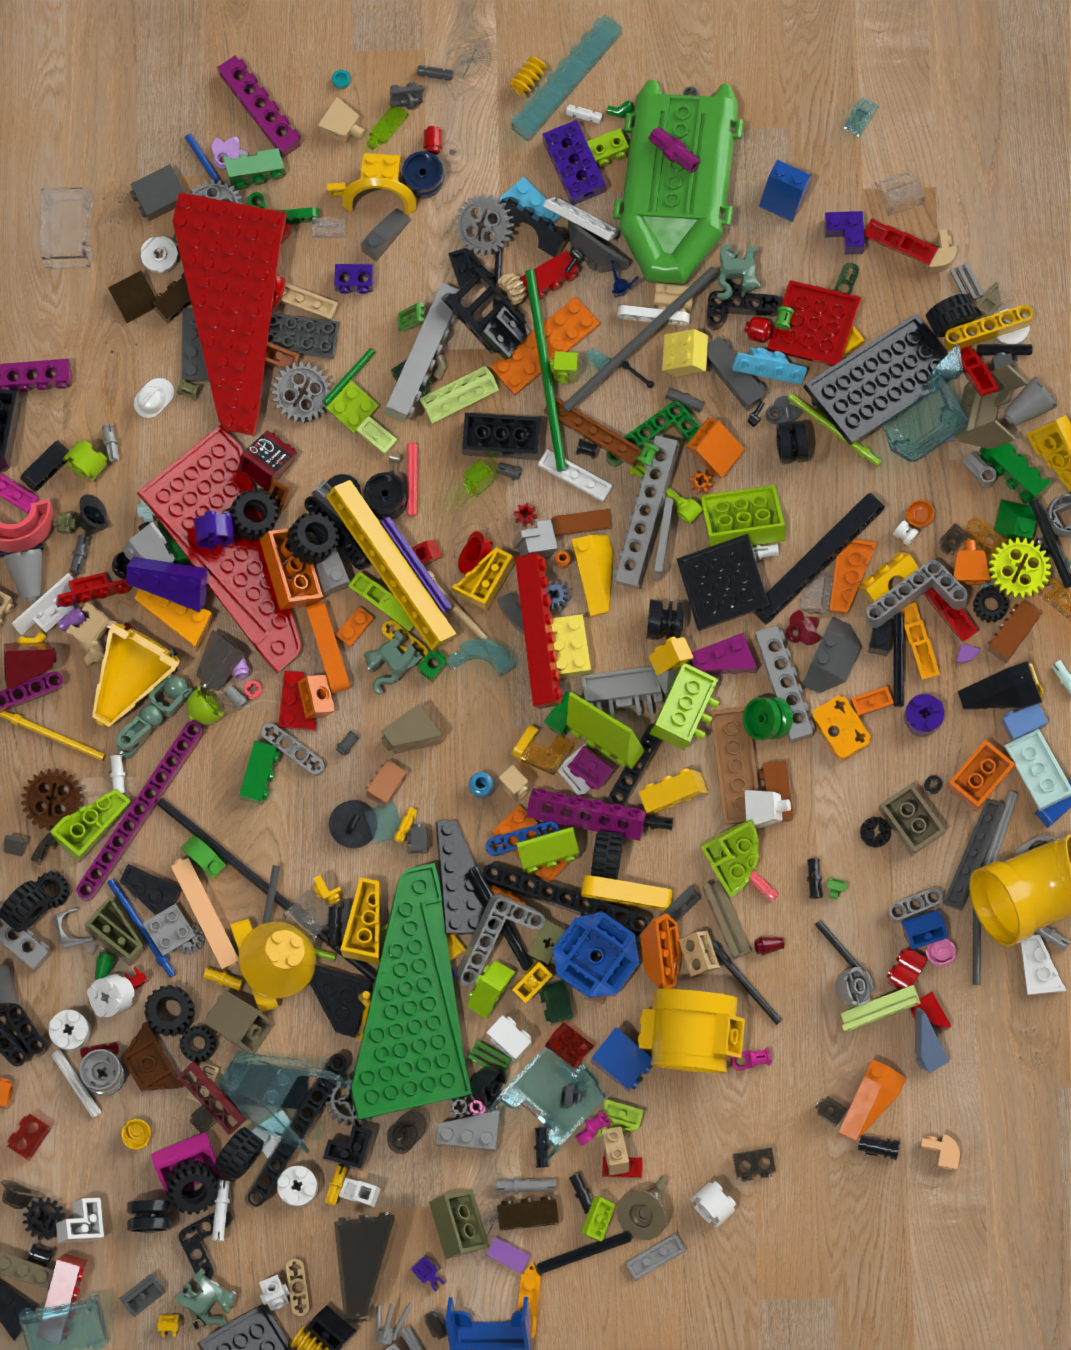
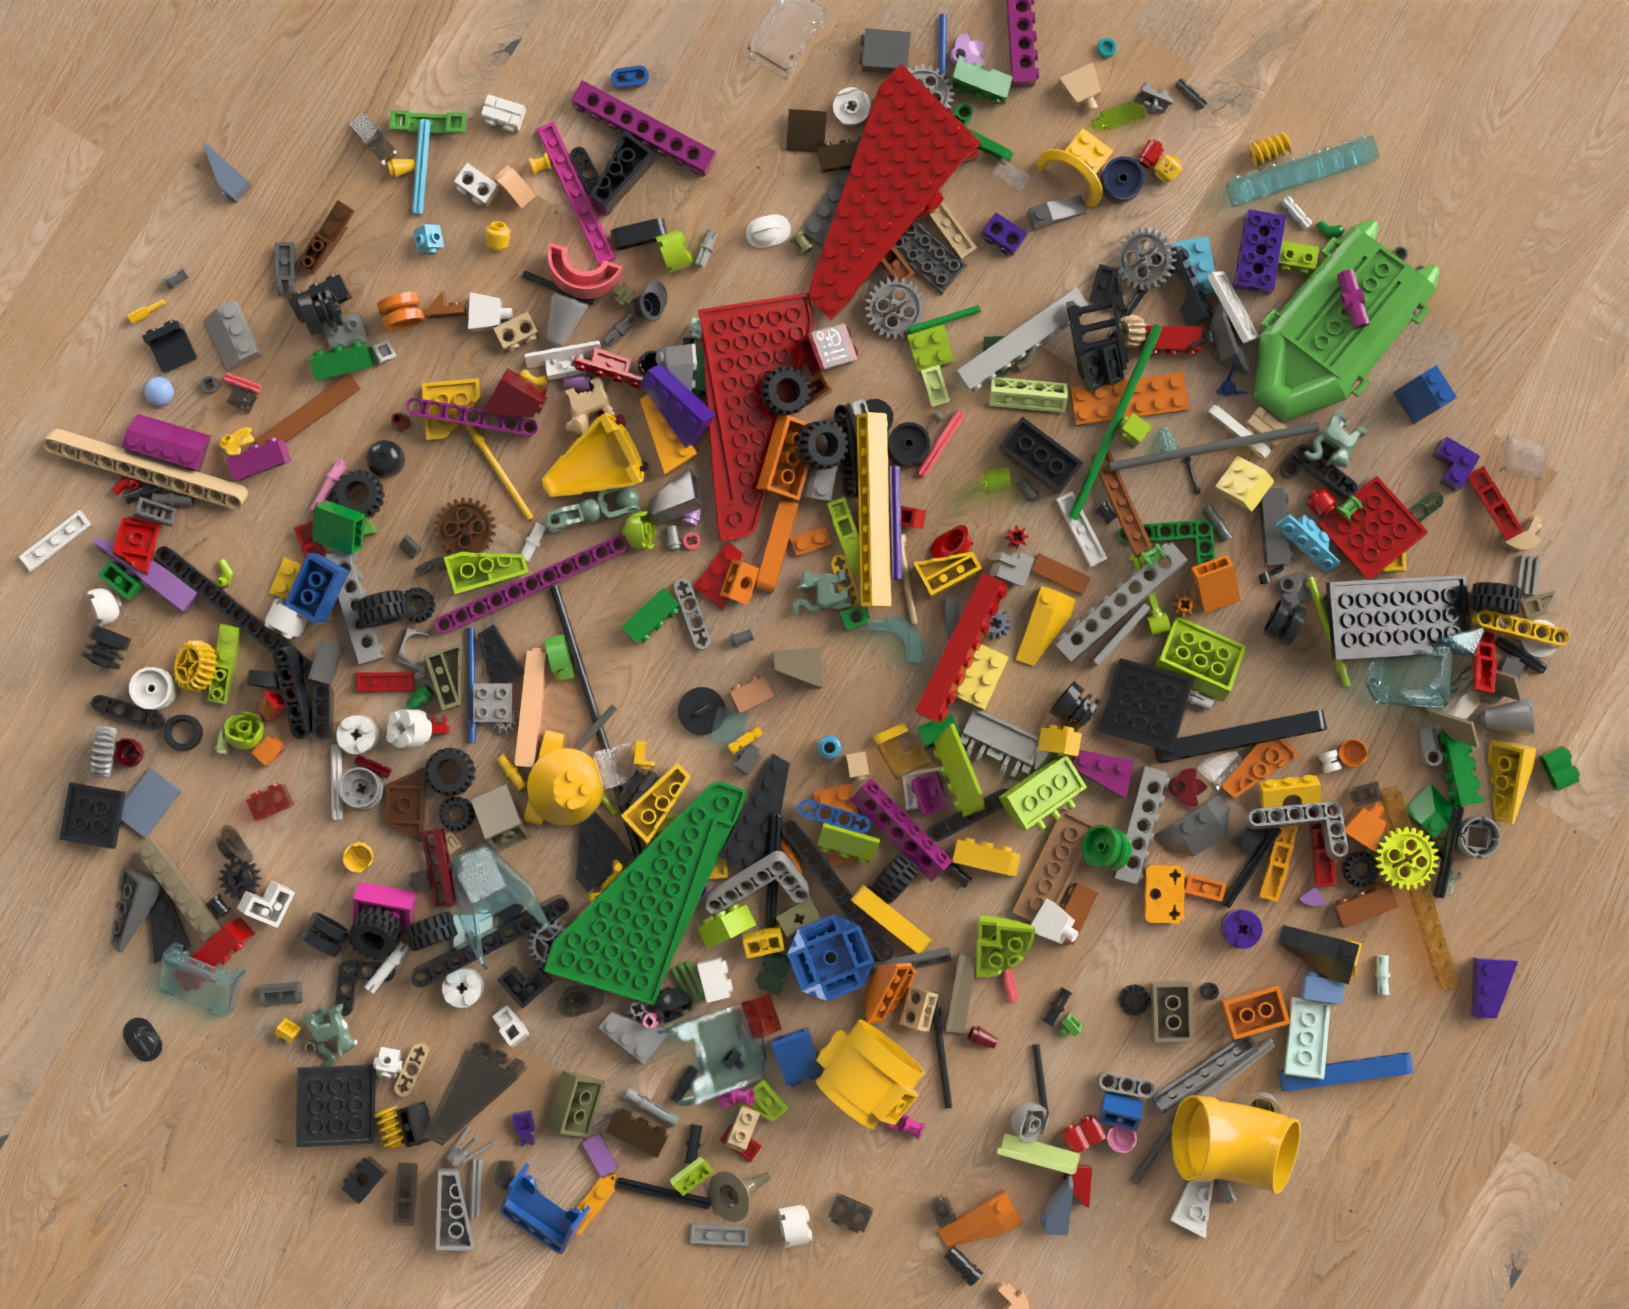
camera: 30 degrees right, 10 degrees up
(64, 973) = (385, 682): none -> red tile
(213, 530) = (742, 384): dark purple brick -> none
(335, 189) = (1039, 144): yellow tile -> none
(336, 1185) = (495, 1006): yellow axle -> none
(410, 320) = (1039, 303): bright green tile -> none
(454, 143) = (1167, 168): none -> yellow head
(562, 555) = (1023, 592): orange pin -> none
(861, 116) = (1535, 368): clear light blue slope -> none

